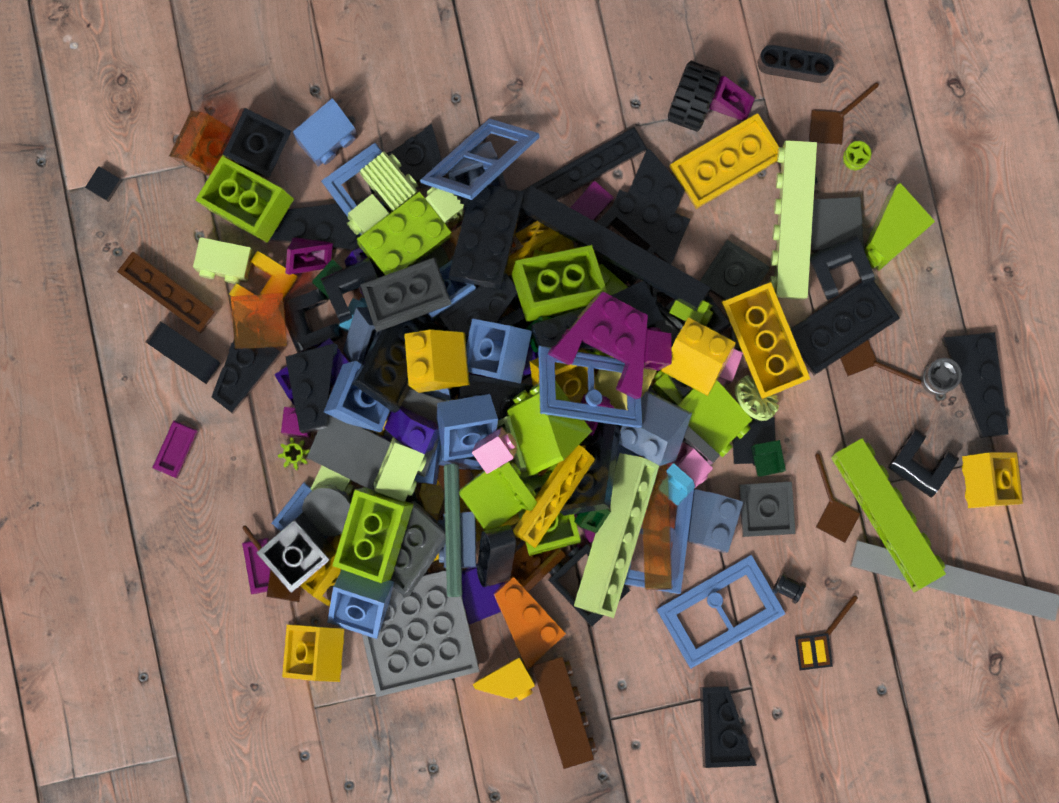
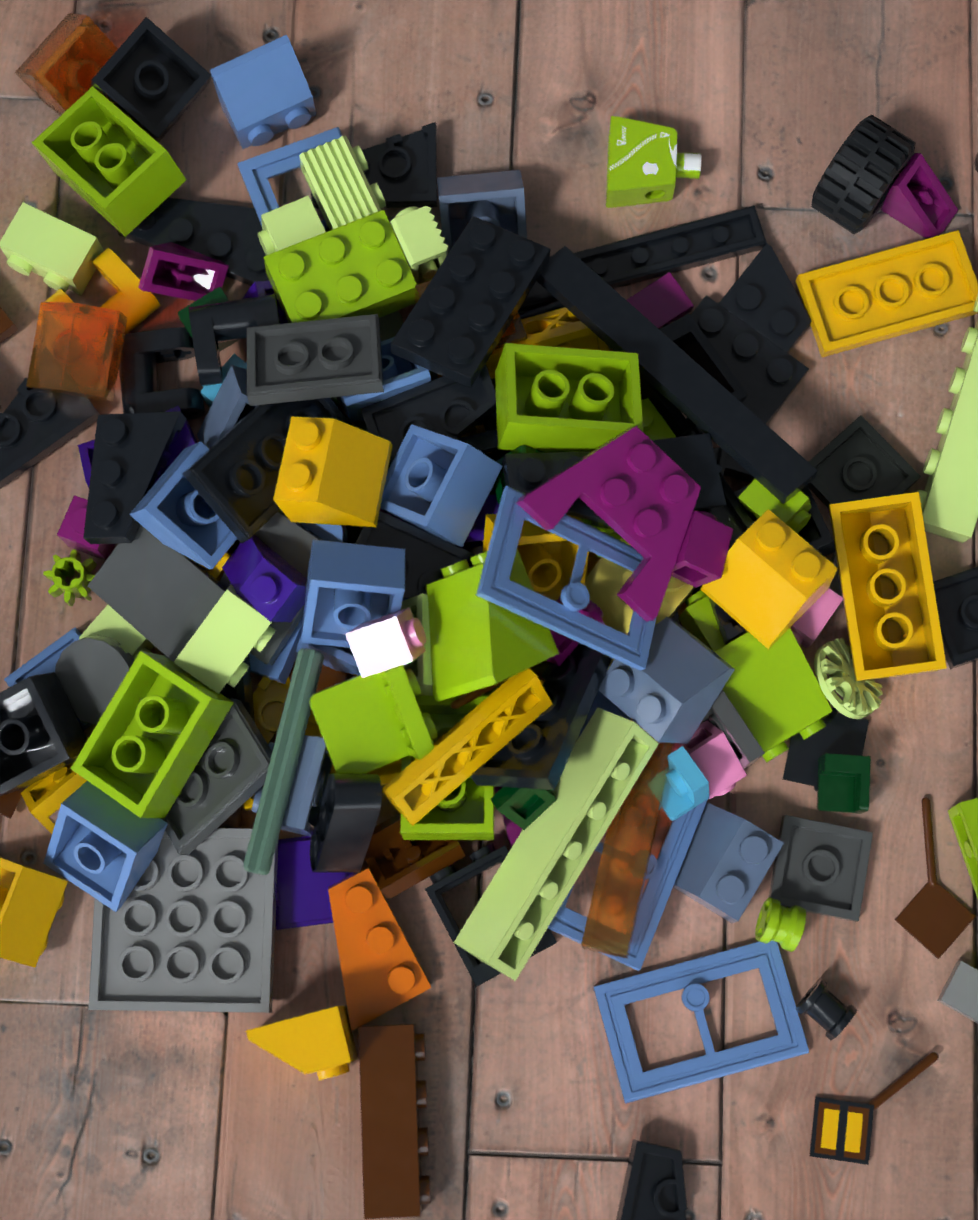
camera: 20 degrees right, 5 degrees down
(491, 166) = (509, 200): medium blue door -> none
(562, 117) = (645, 163): none -> lime torso
(752, 547) = (780, 924): none -> lime wheel

